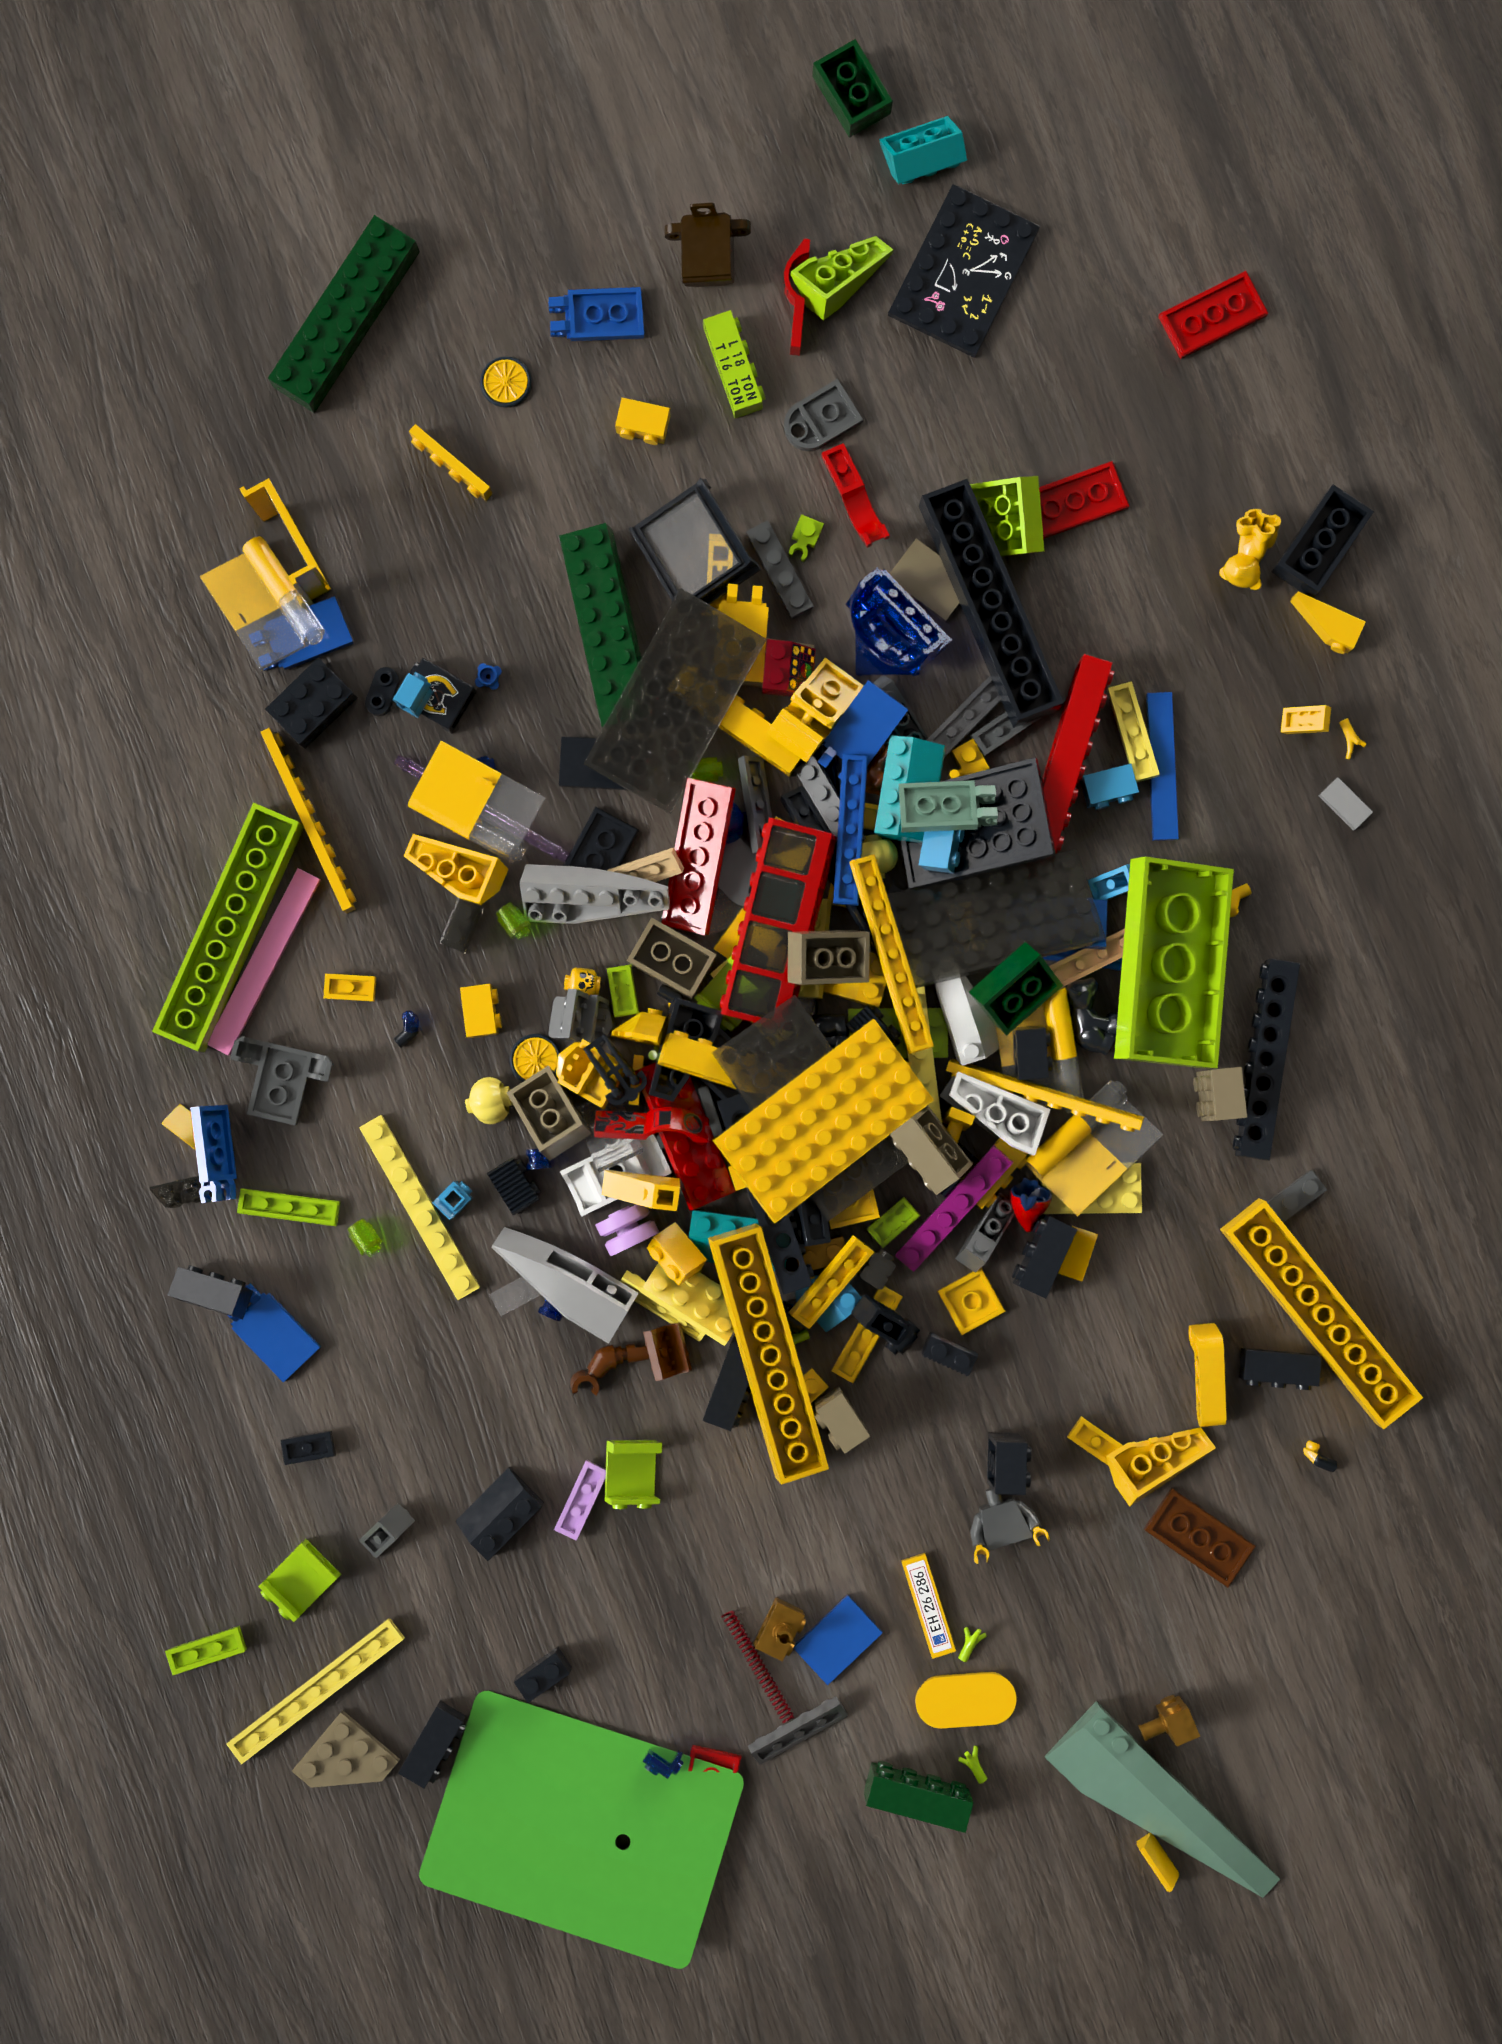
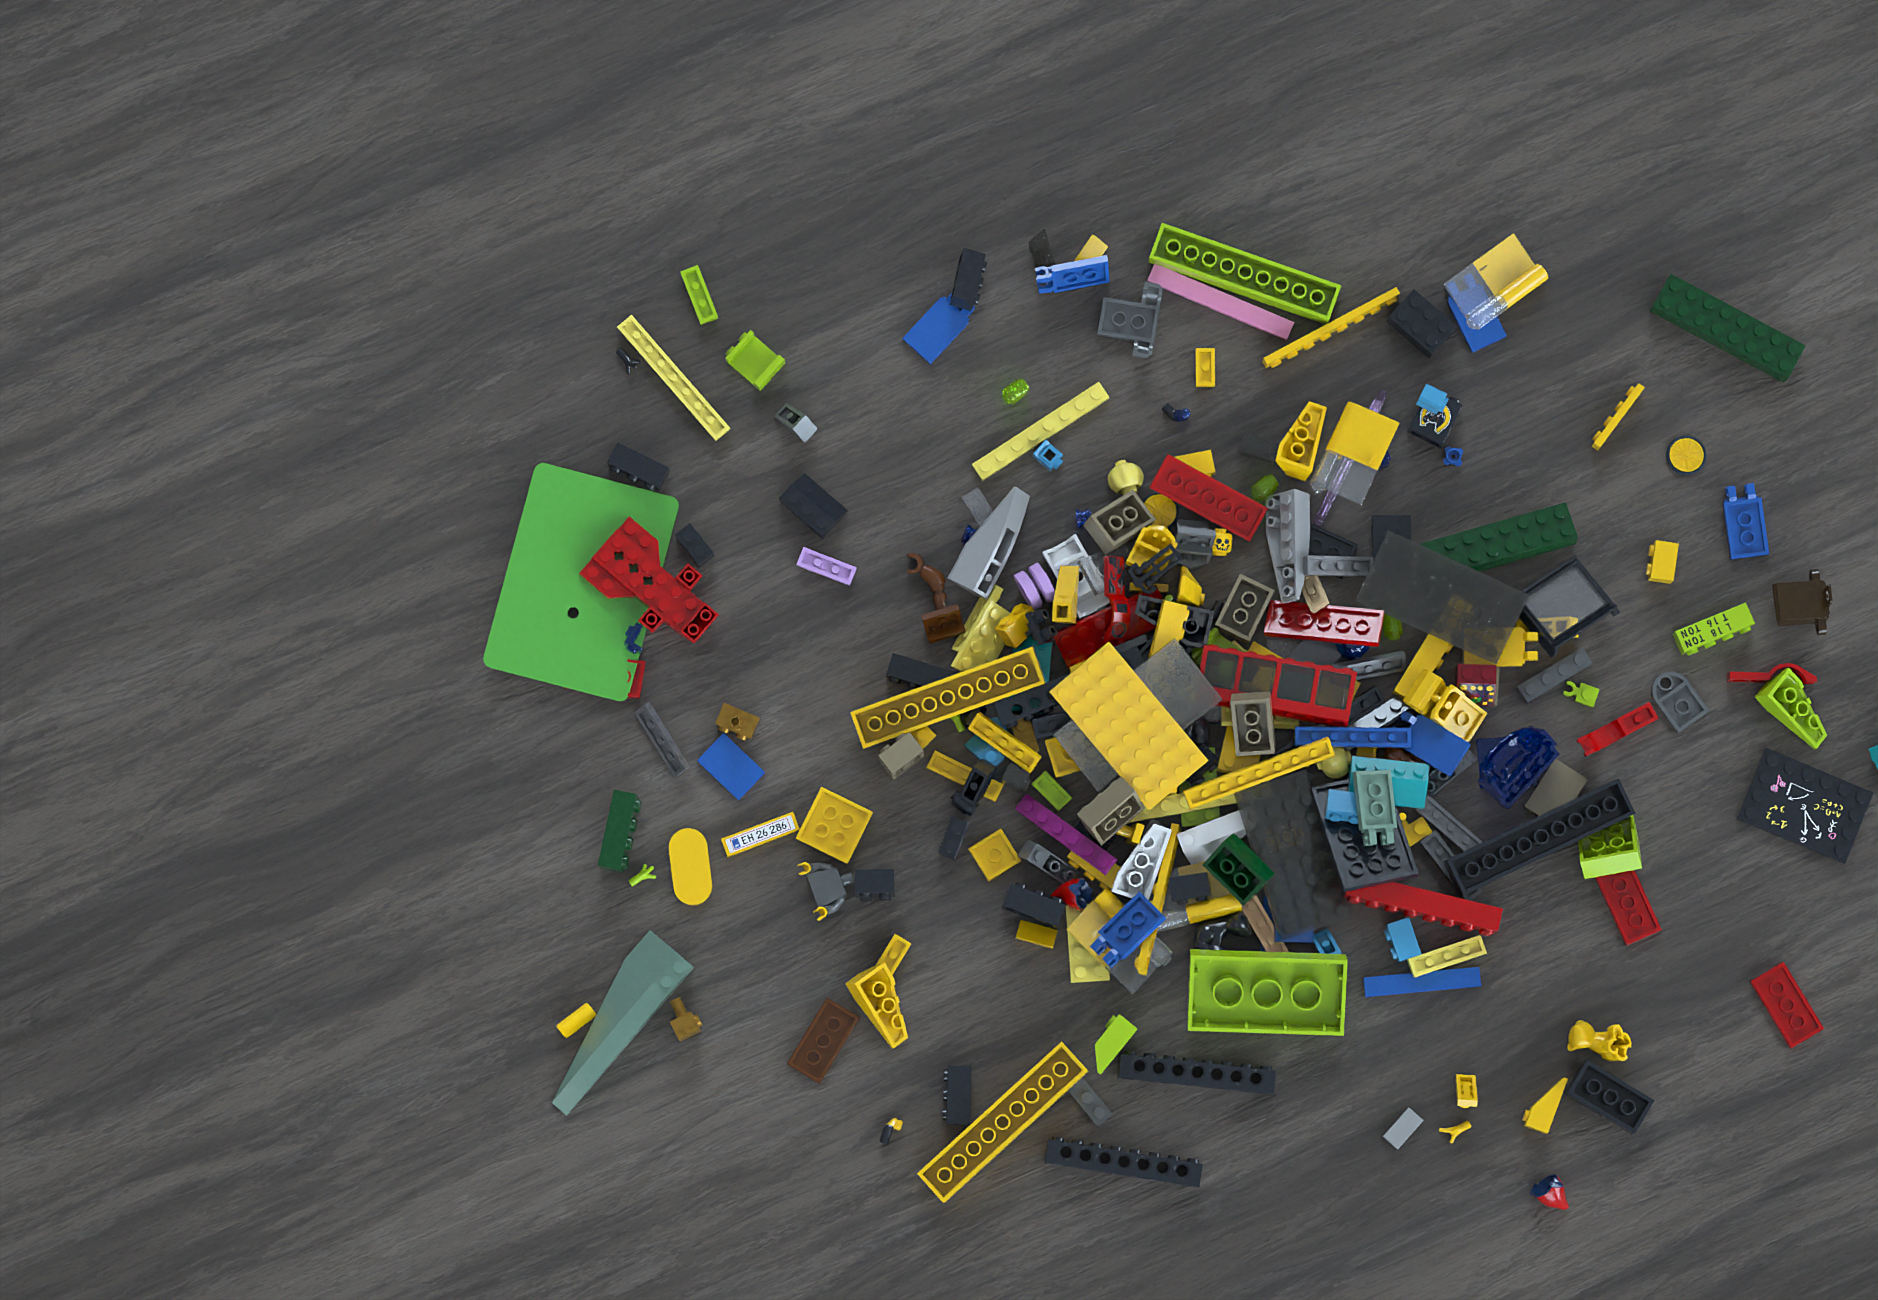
camera: 90 degrees right, 5 degrees down
(267, 503) = (1516, 319): yellow piece -> none
(287, 1750) = (627, 360): none -> black bar
(288, 1207) = (1034, 333): lime tile -> none
(308, 1447) = (854, 359): black plate -> none
(345, 1756) = (625, 403): dark tan plate -> none
(382, 690) = (1435, 377): black plate -> none
(514, 1185) = (1061, 501): black brick -> none
(522, 995) = (1208, 497): none -> red plate
(610, 1715) = (666, 599): none -> red piece
(622, 991) = (1216, 574): lime plate -> none
(624, 834) = (1337, 565): none -> flat silver plate
(631, 1473) = (849, 602): lime panel -> none
(683, 1228) = (1038, 628): none -> black hips
(759, 1665) = (704, 709): dark red piece -> none
(922, 1508) = (834, 825): none -> yellow plate
(970, 1643) = (734, 868): lime bar -> none
(1086, 1136) = (1127, 929): none -> blue tile
(1209, 1374) = (949, 1039): yellow beam -> none
(1220, 1094) = (1168, 1033): dark tan brick -> none
(1226, 1163) = (1112, 1041): none -> lime wedge
(1237, 894) = (1320, 1041): yellow arm -> none
(1371, 1223) = (1193, 1167): none -> black brick
(1435, 625) = (1550, 1192): none -> hat

